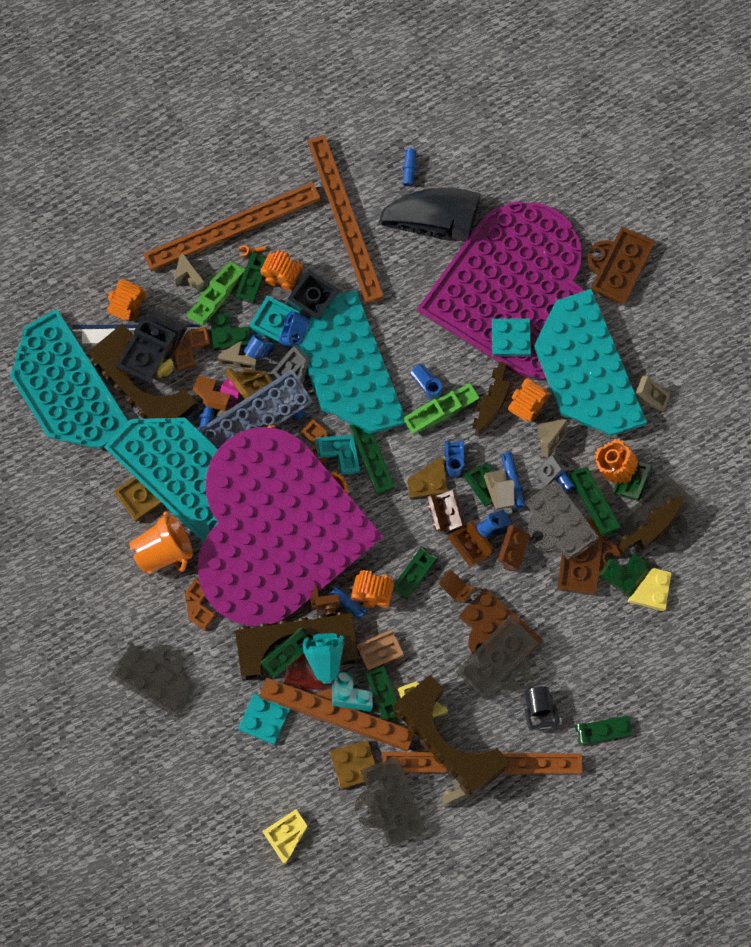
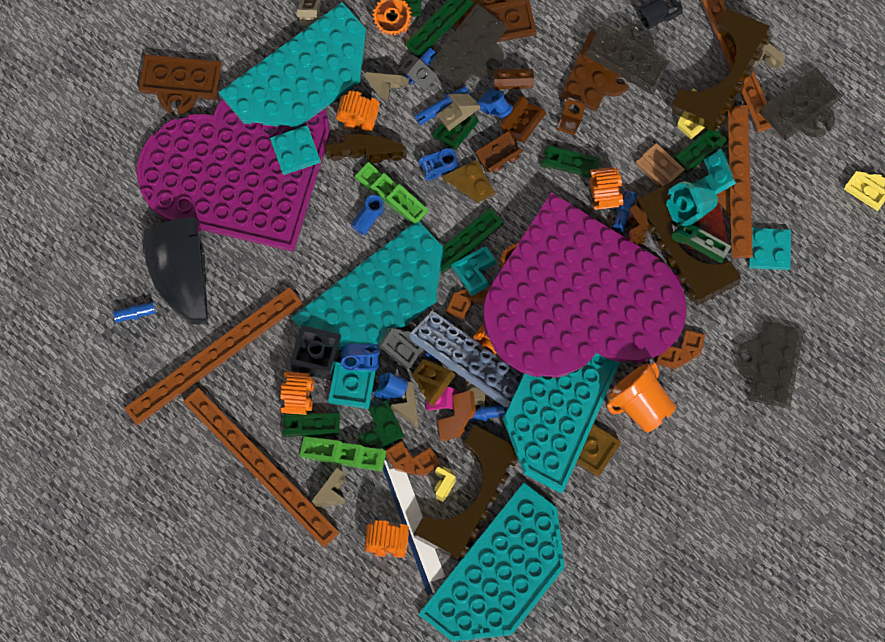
camera: 105 degrees left, 0 degrees up
(152, 343) = (428, 491): black piece -> none
(249, 251) = (280, 438): orange hand -> none
(349, 762) = (778, 155): pearl gold plate -> none

